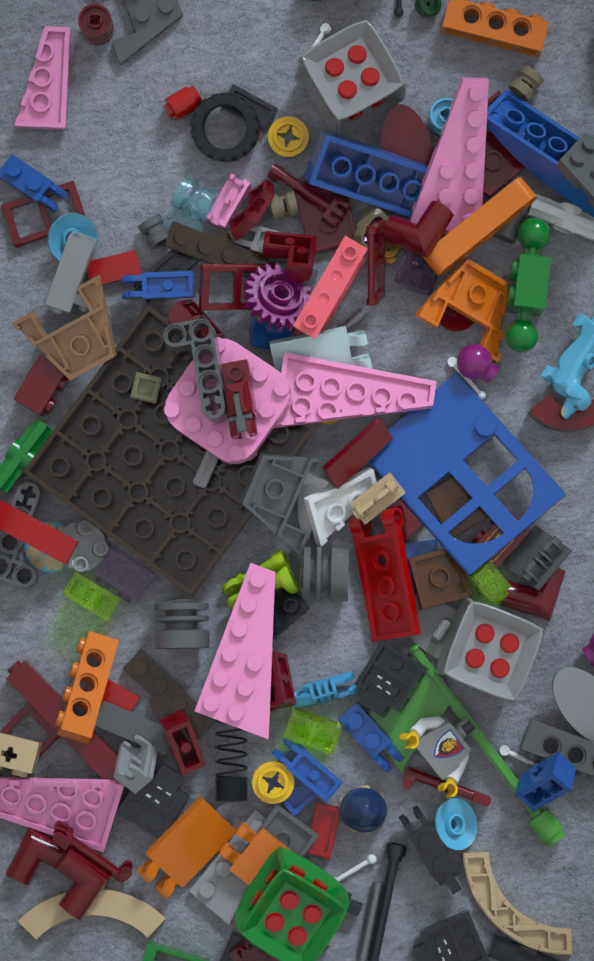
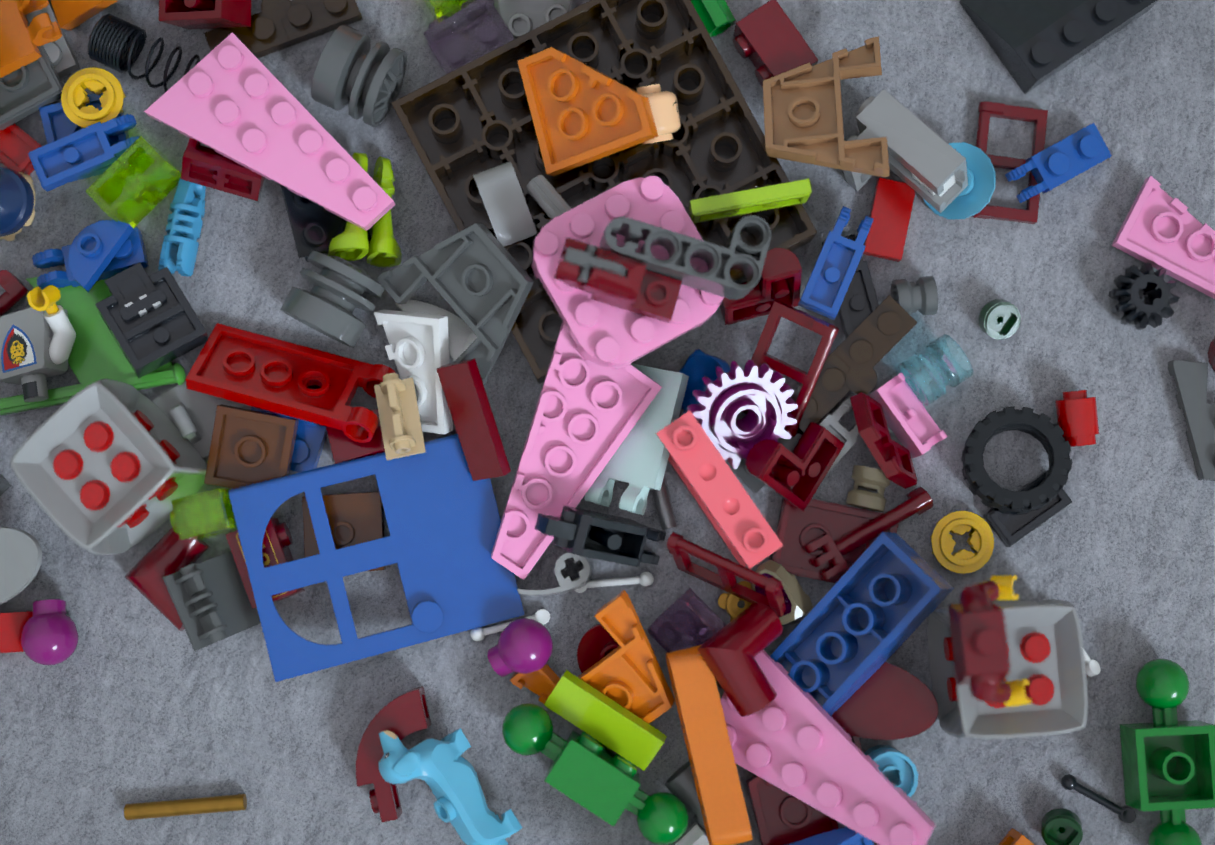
camera: 110 degrees right, 0 degrees up
(80, 99) = (1156, 289): none -> black gear
(125, 432) = (664, 111): none -> light nougat head
(144, 175) = (999, 319): none -> tile
(144, 475) = (581, 111): none -> orange plate
(146, 388) = (702, 174): olive tile -> none
(150, 351) = (749, 201): none -> lime tile
(220, 495) = (505, 204): none -> light grey panel
(347, 98) = (982, 644): none -> dark red torso
(364, 733) = (95, 249): none -> blue plate
(389, 346) = (601, 536): none -> black hinge
(422, 348) = (645, 579): none -> white hinge
(426, 356) = (566, 584): none -> light grey panel
(494, 294) = (605, 720): none -> lime tile

